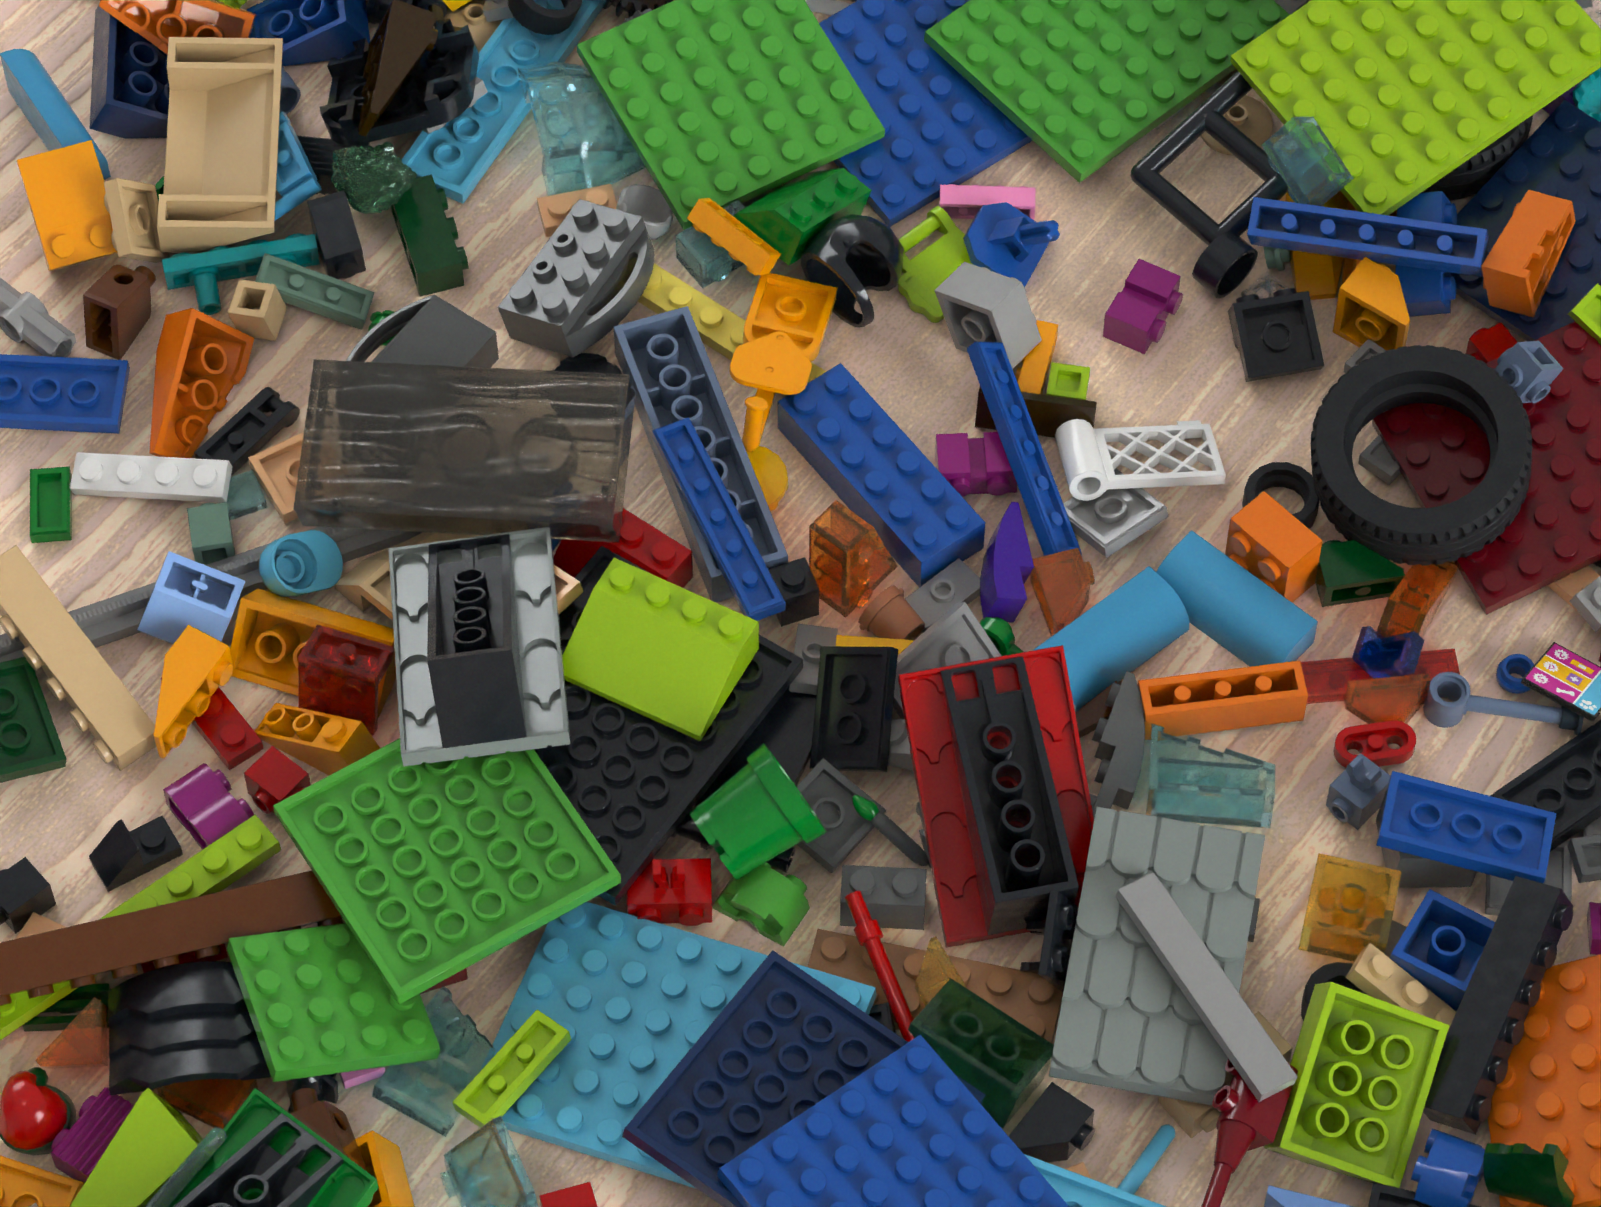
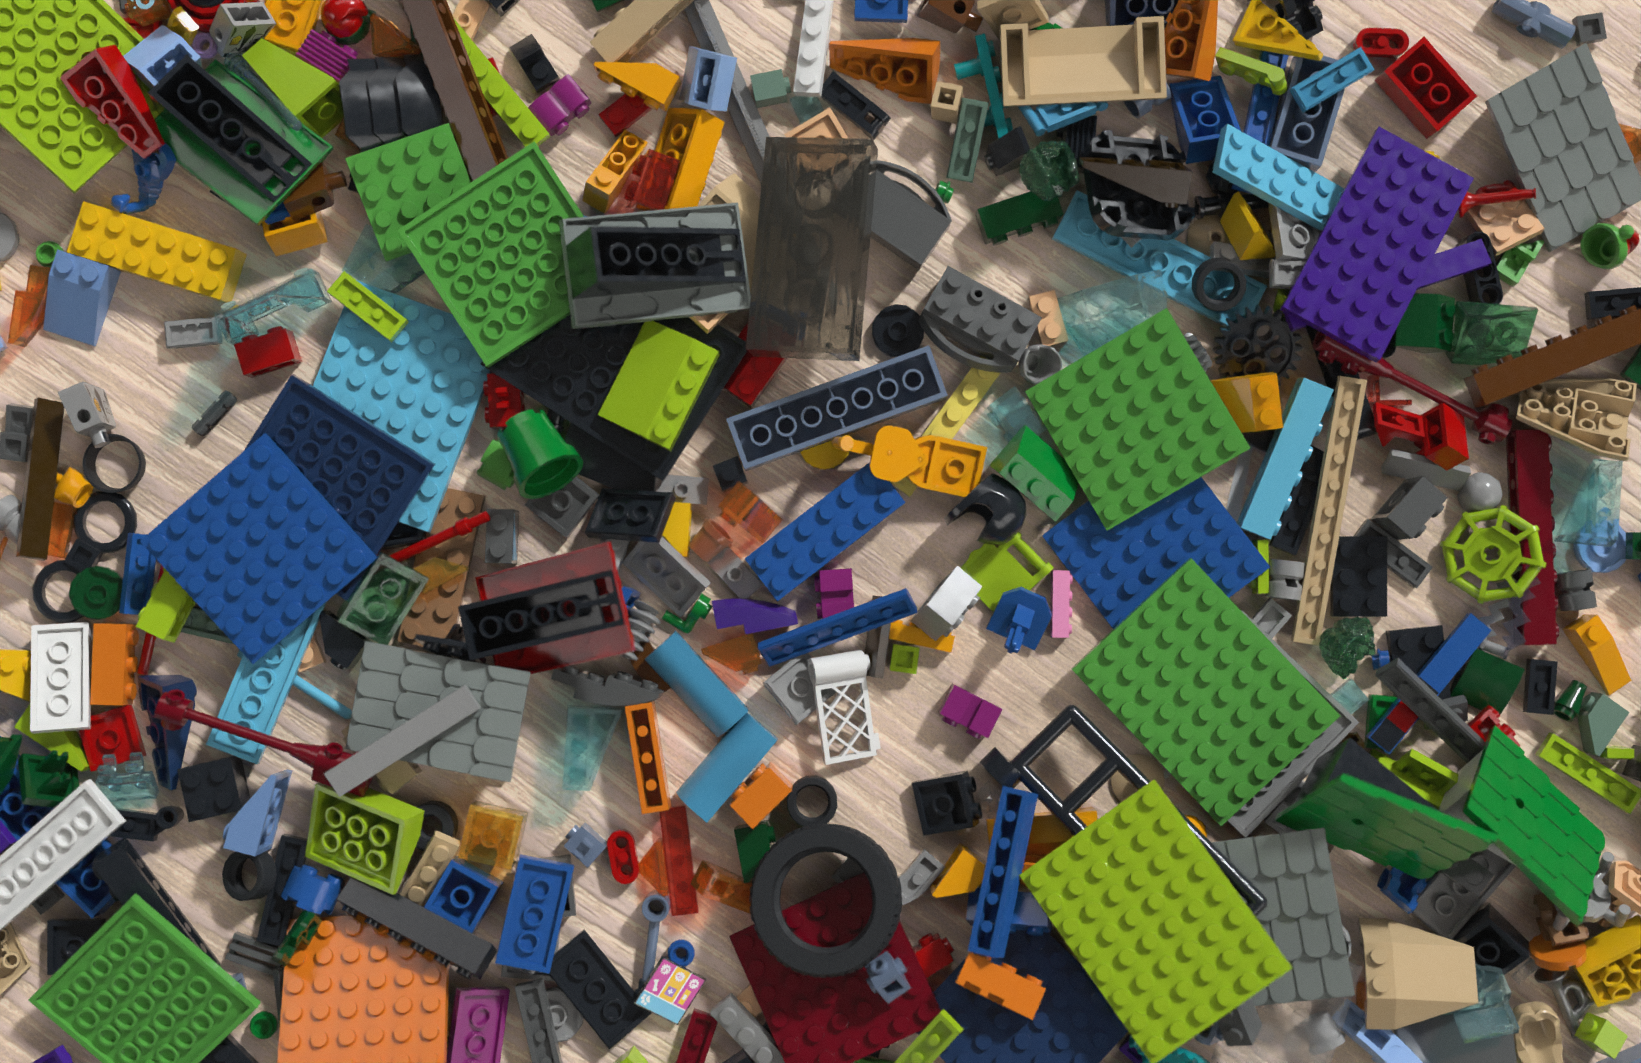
camera: 85 degrees right, 30 degrees up
(274, 779) = (579, 148): red brick -> none
(301, 564) = (738, 148): medium azure cap -> none
(718, 520) = (768, 421): blue tile -> none
(733, 236) = (1007, 425): light orange piece -> none
(870, 812) = (557, 527): dark grey piece -> none
(1306, 161) = (1061, 831): clear light blue brick -> none
(1389, 655) = (682, 869): clear blue bracket -> none

